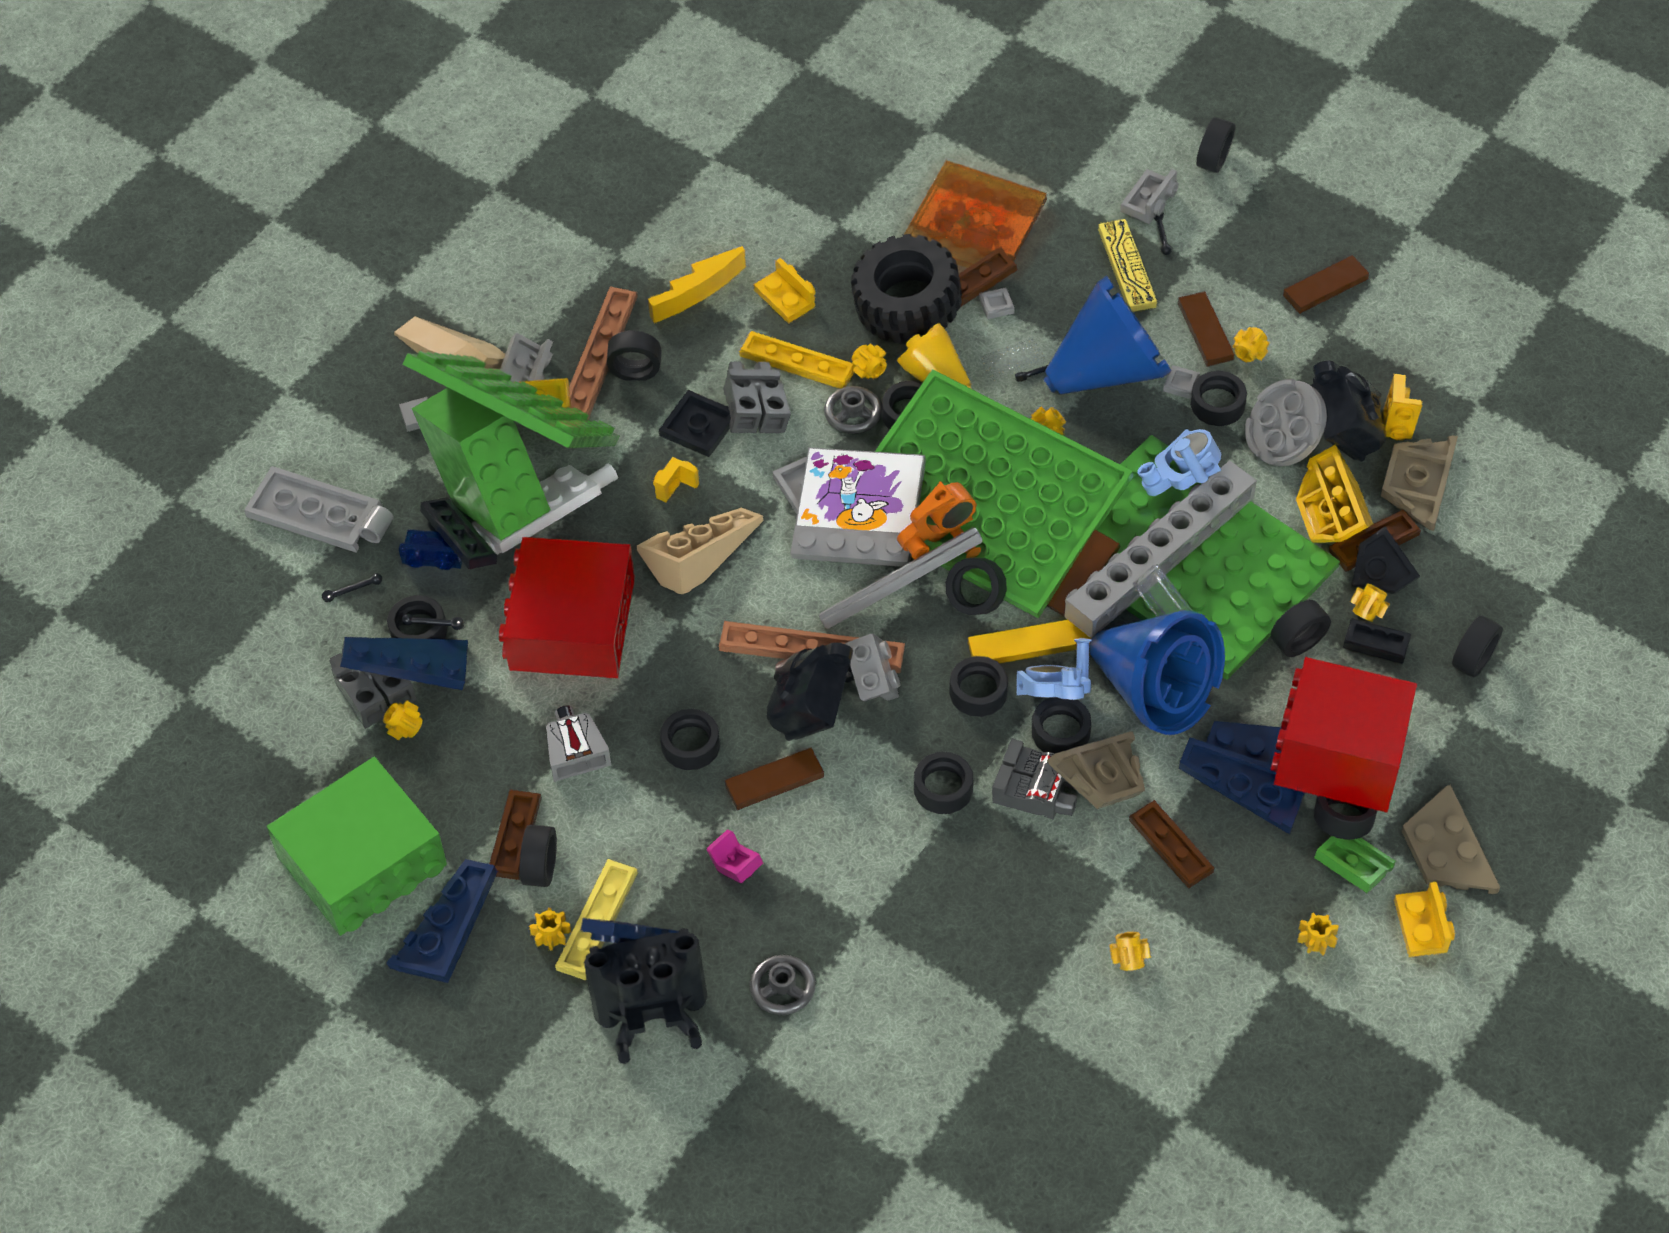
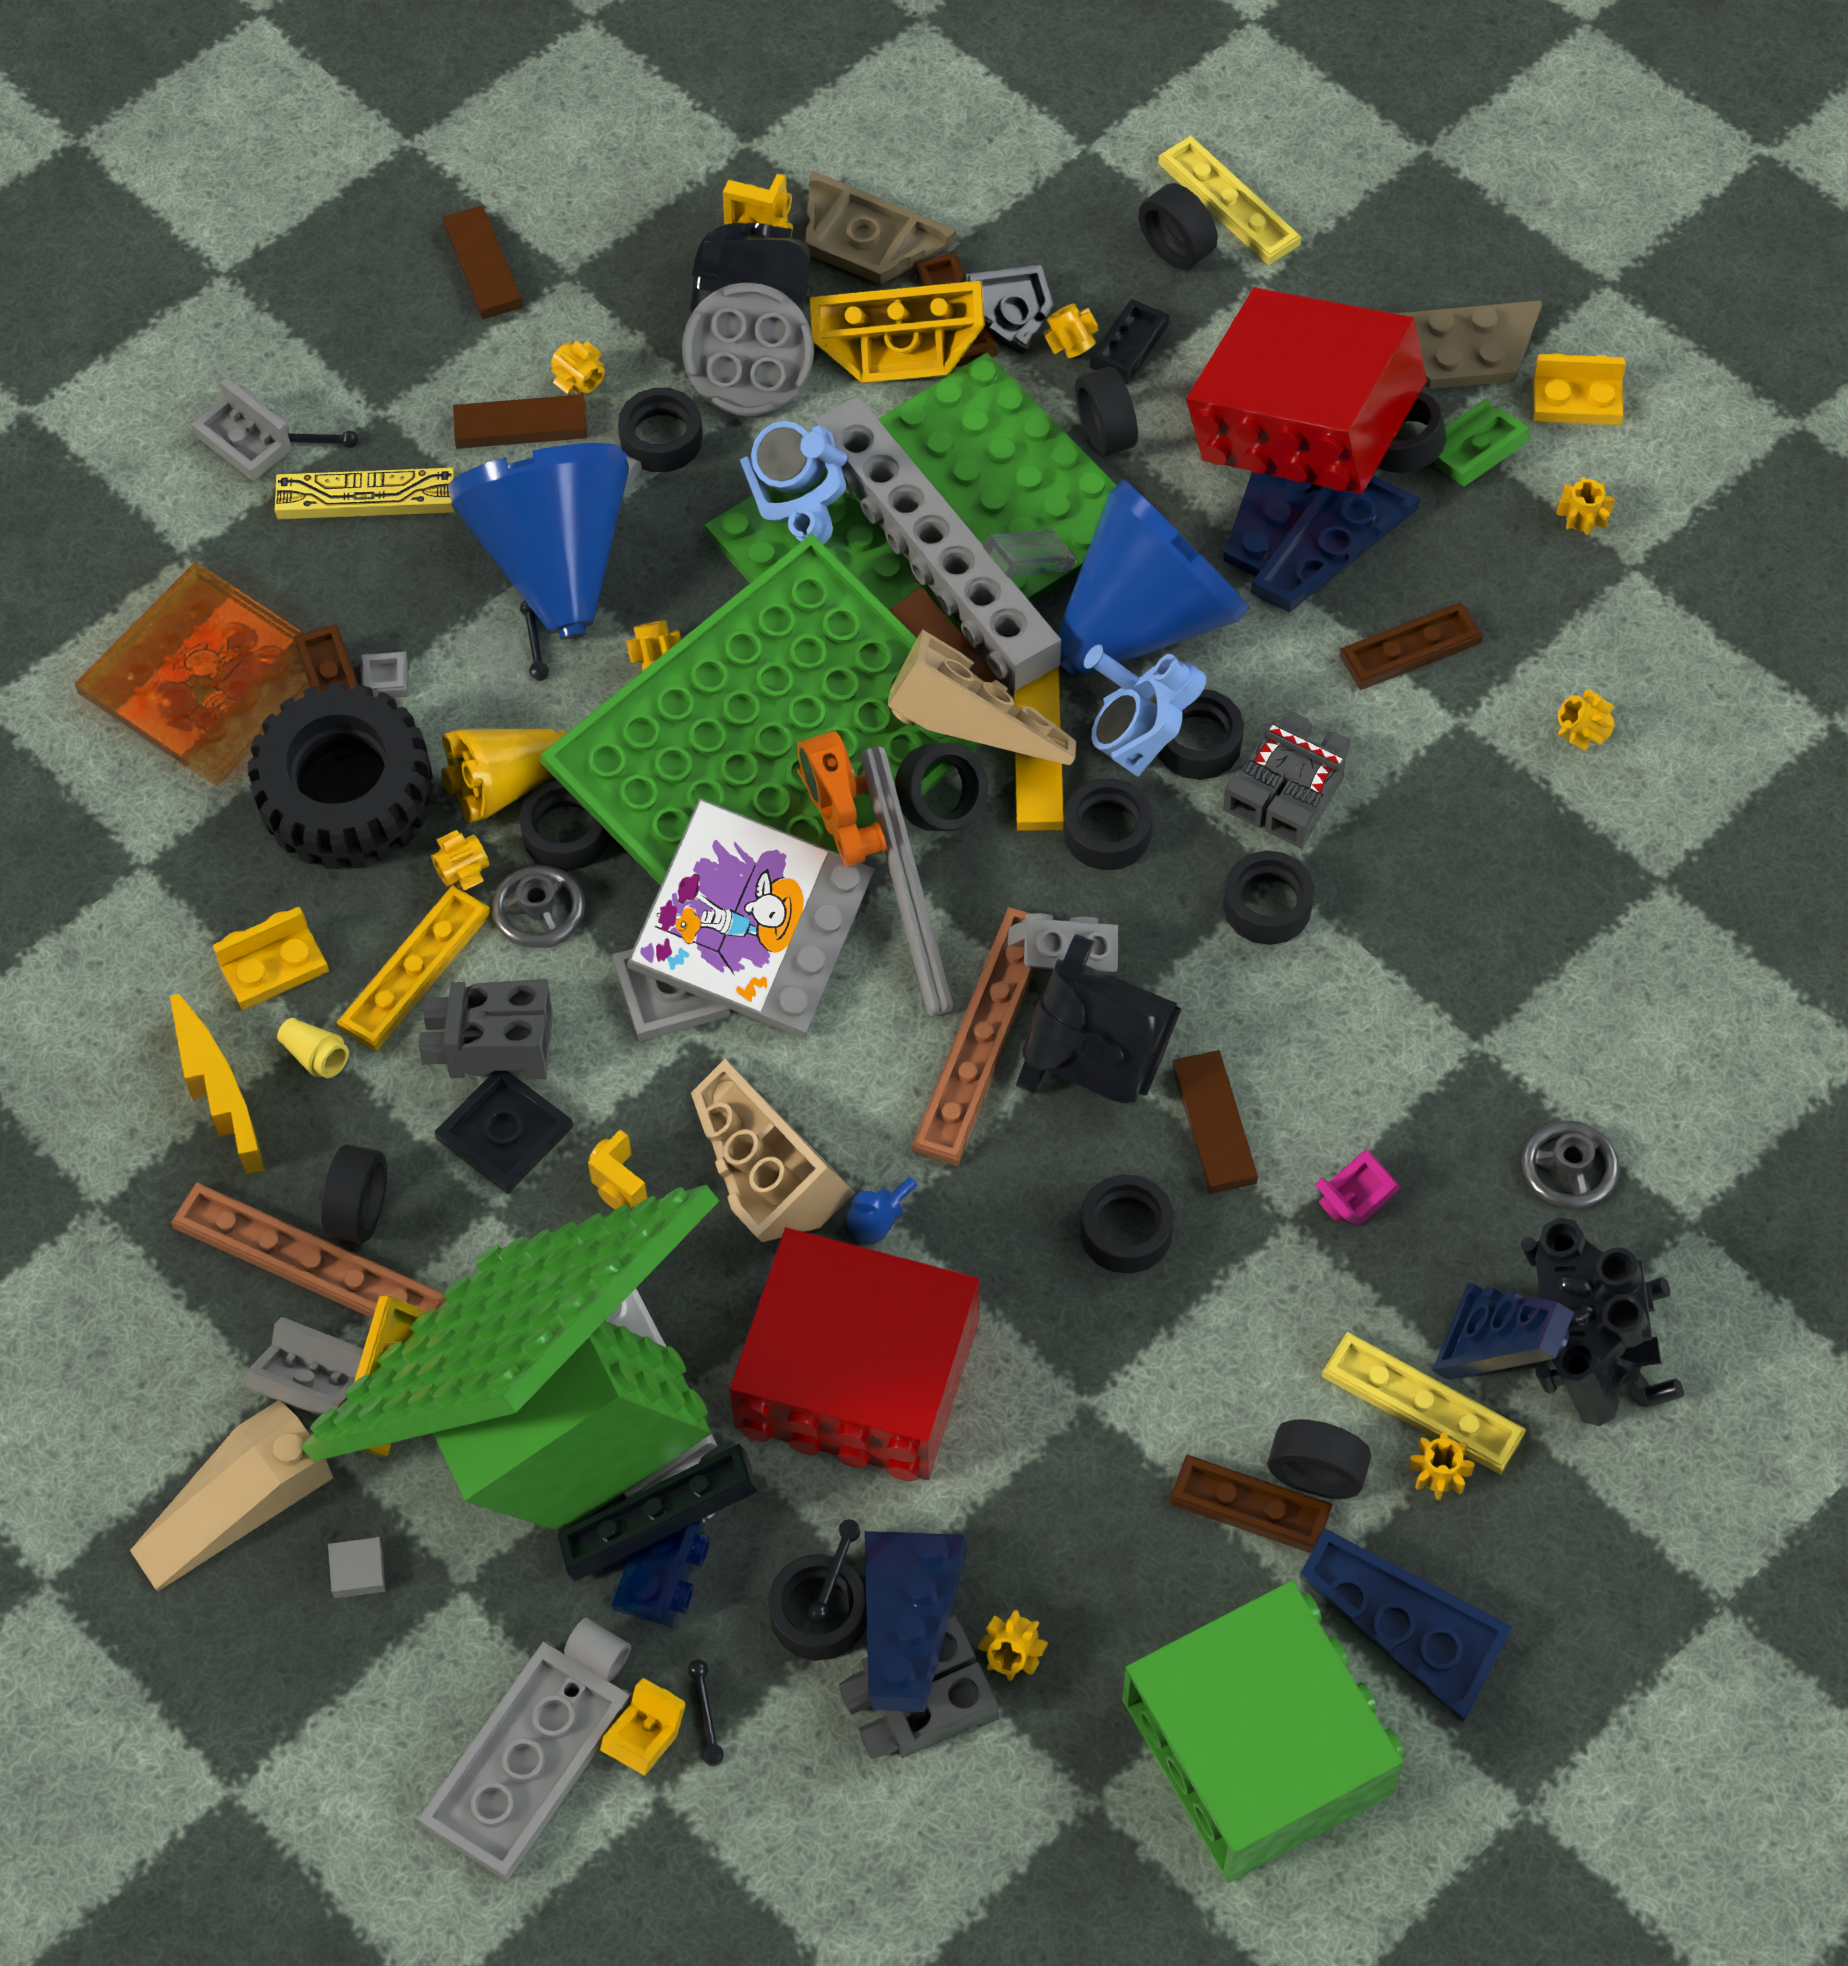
camera: 80 degrees left, 5 degrees up
(333, 556) = (644, 1727): none -> yellow bracket
(575, 744) = (1107, 1389): light grey torso -> none
(672, 610) = (875, 1213): none -> blue piece
(731, 324) = (314, 1047): none -> light yellow cone
(1036, 581) = (951, 700): none -> tan wedge
(1102, 770) = (1297, 688): dark tan wing -> none
(1215, 144) = (183, 323): black tyre -> none
(1528, 684) = (1230, 200): none -> light yellow tile

